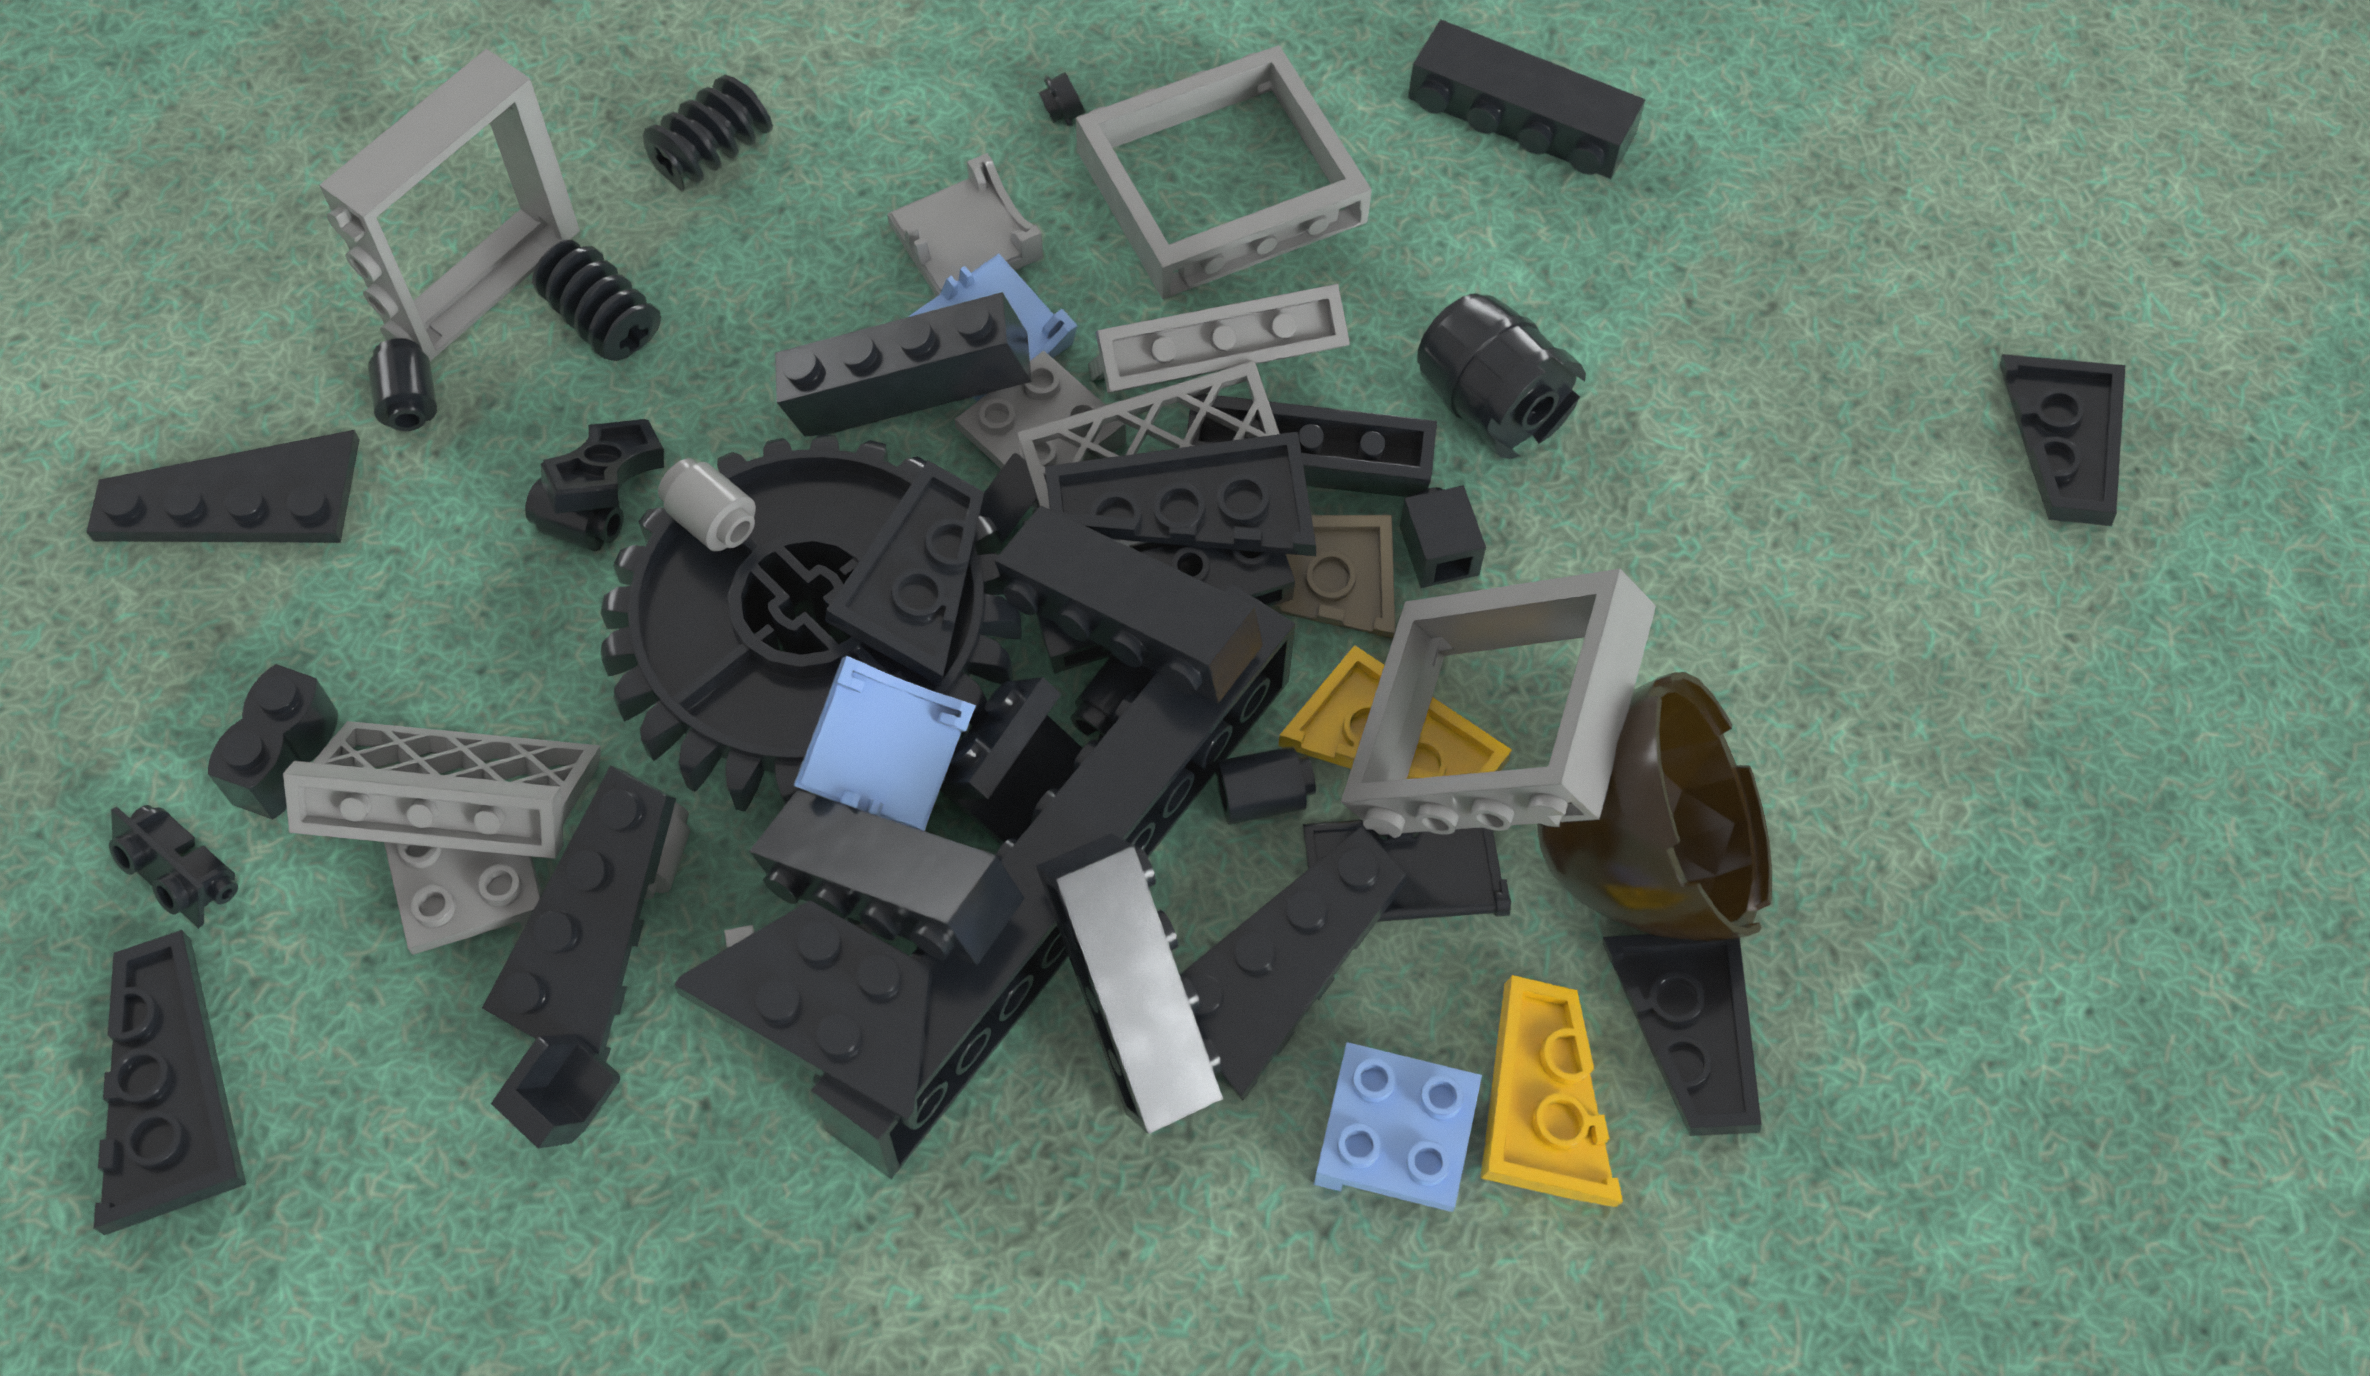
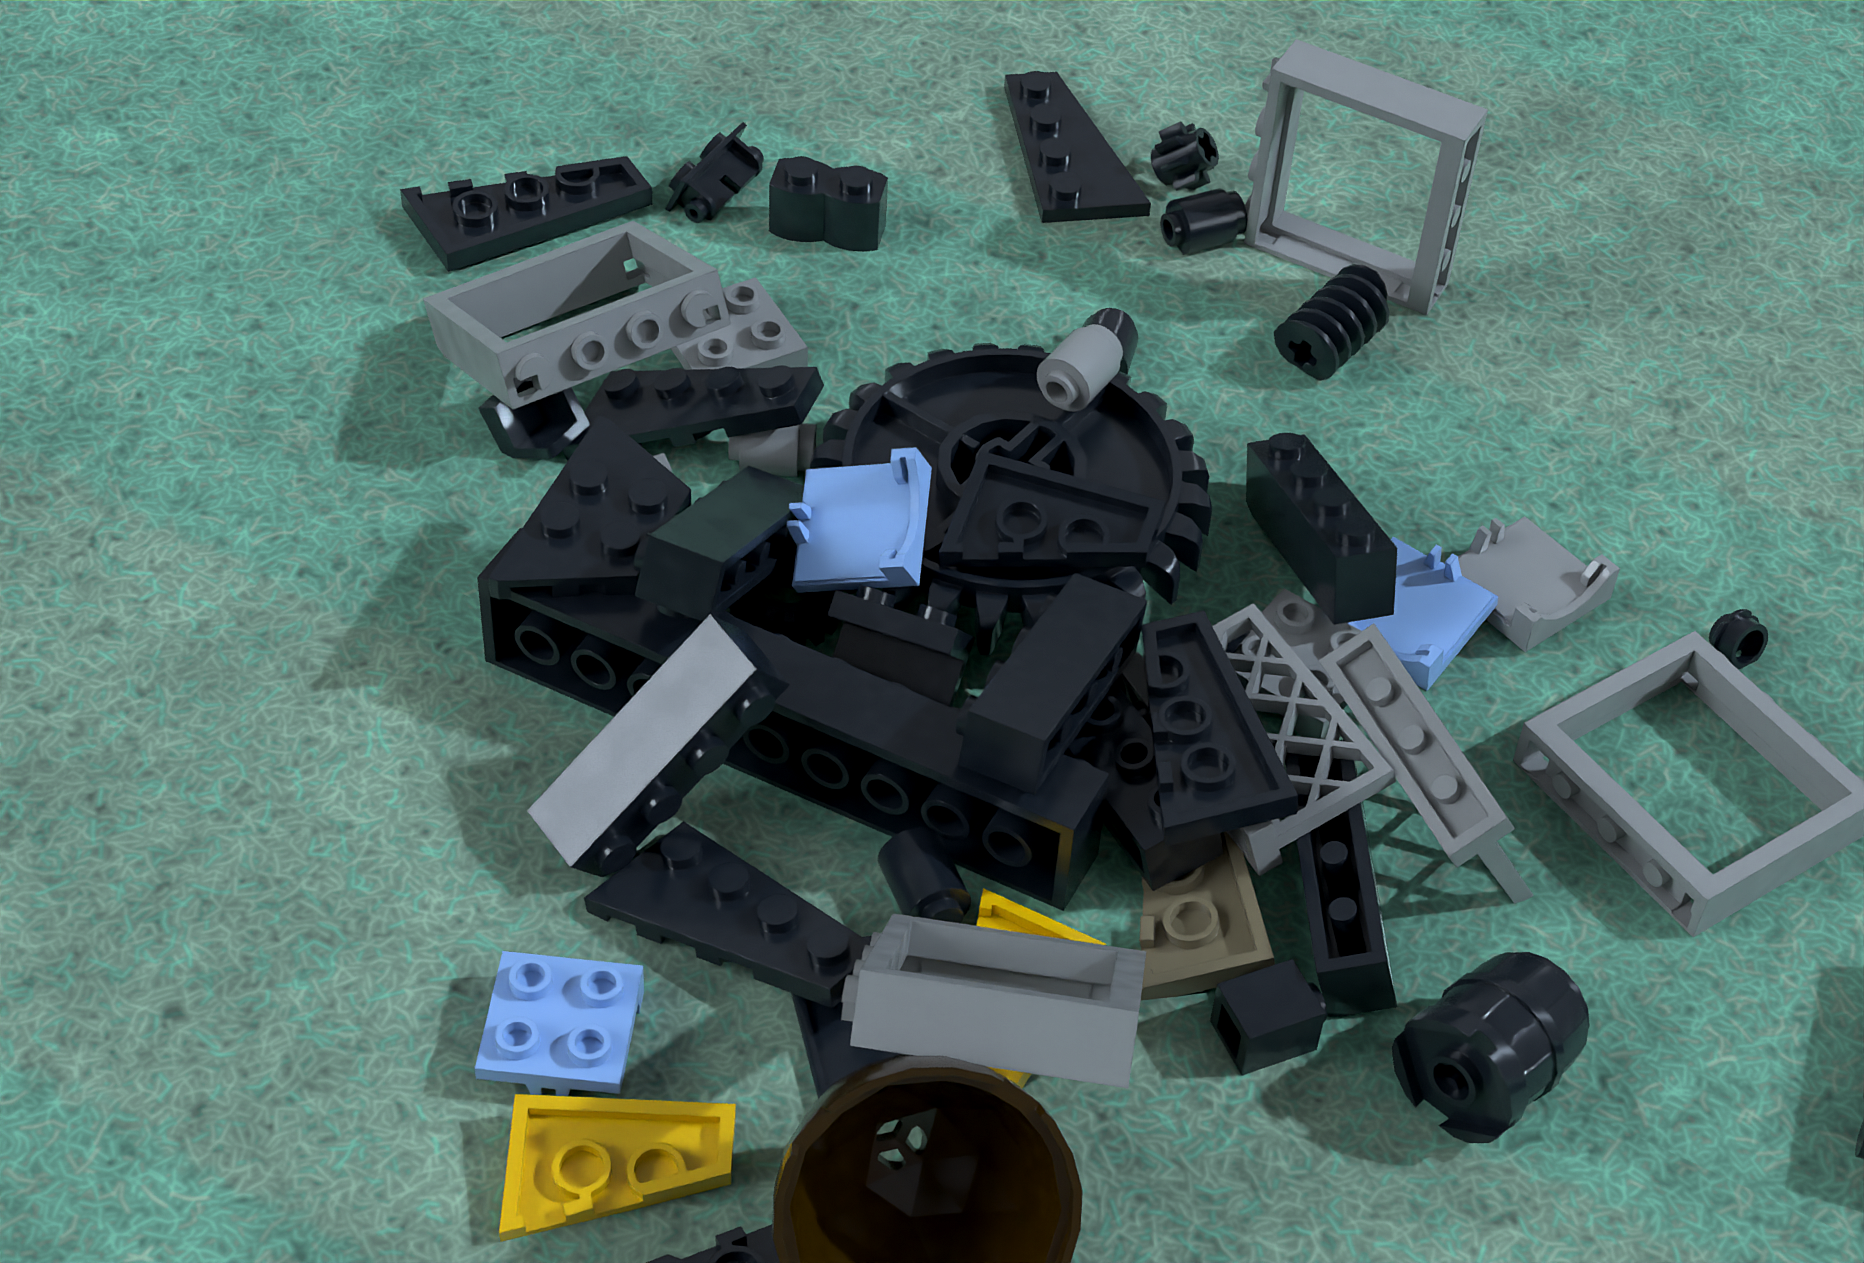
camera: 80 degrees right, 15 degrees down
(297, 381) = (1184, 156): none -> black gear
(328, 1048) = (673, 311): none -> light grey window
(418, 806) = (769, 290): light grey fence -> none
(600, 466) = (1168, 358): black tile -> none
(704, 127) = (1566, 370): black piece -> none

